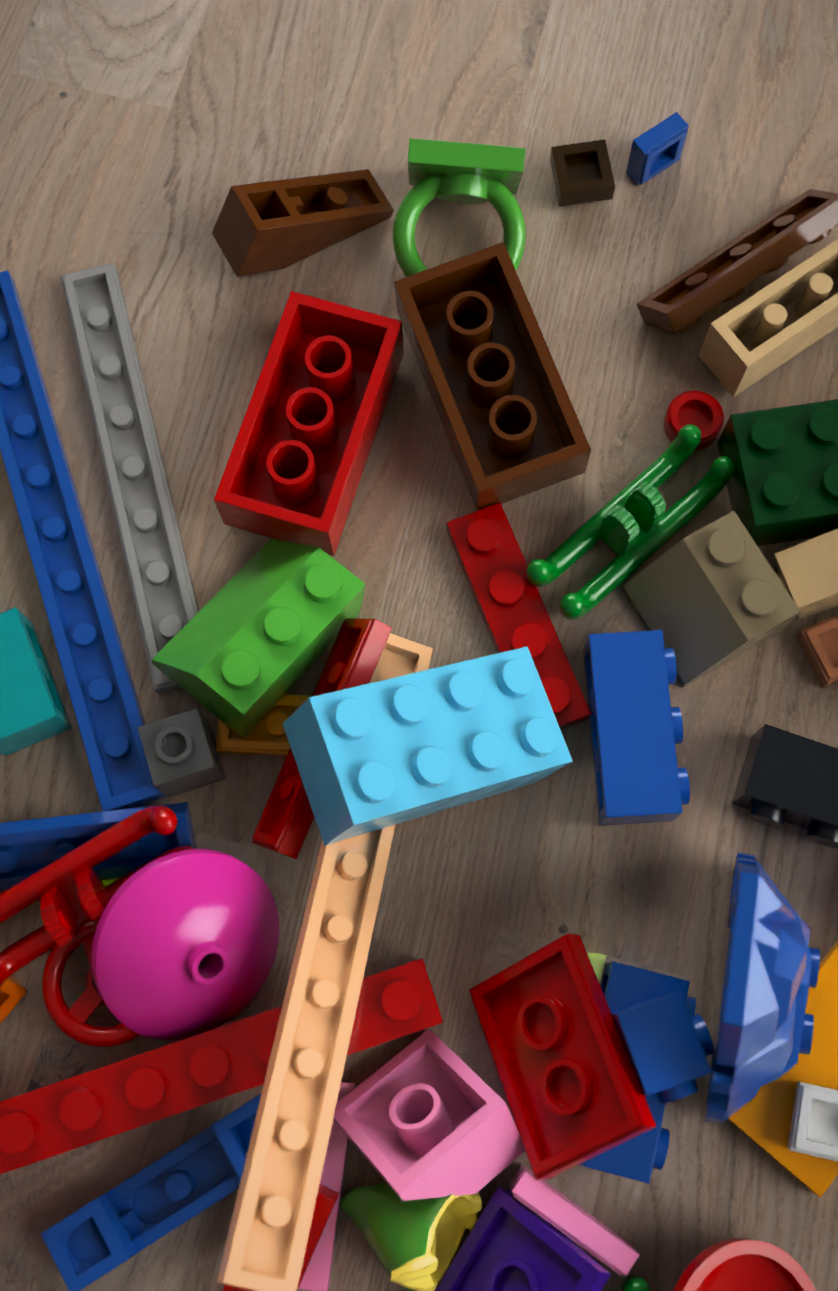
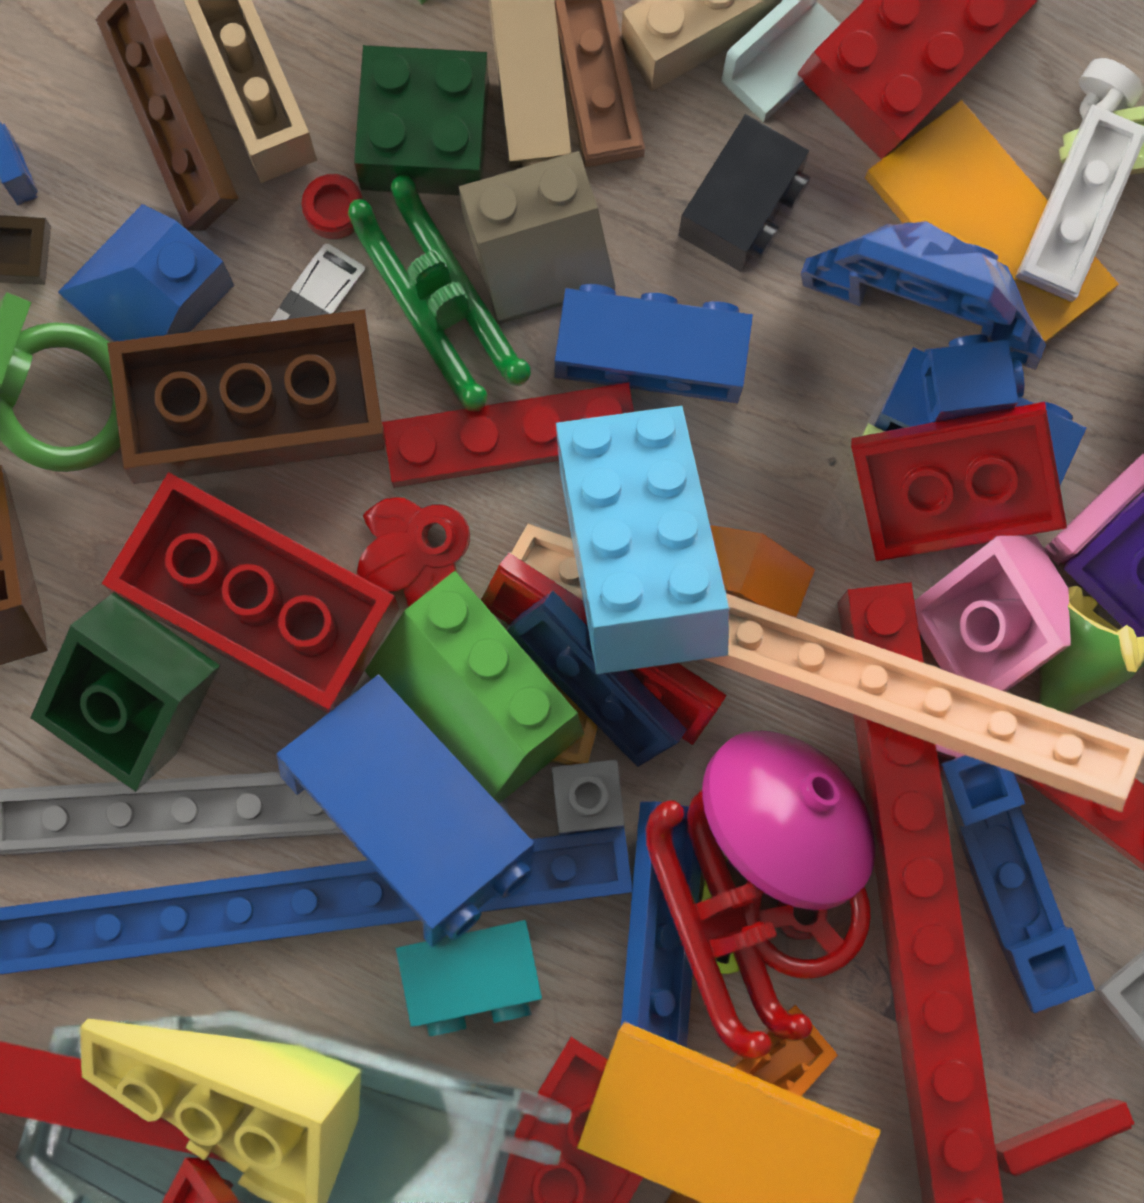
camera: 85 degrees left, 5 degrees up
(134, 590) = (409, 809): none -> blue panel
(205, 334) = (124, 690): none -> dark green brick
(271, 761) = (612, 700): none -> dark blue tile
(385, 547) = (402, 552): none -> red plate
(429, 869) = (761, 570): none -> orange slope
(581, 286) = (148, 280): none -> blue slope
(615, 426) = (320, 285): none -> white sticker

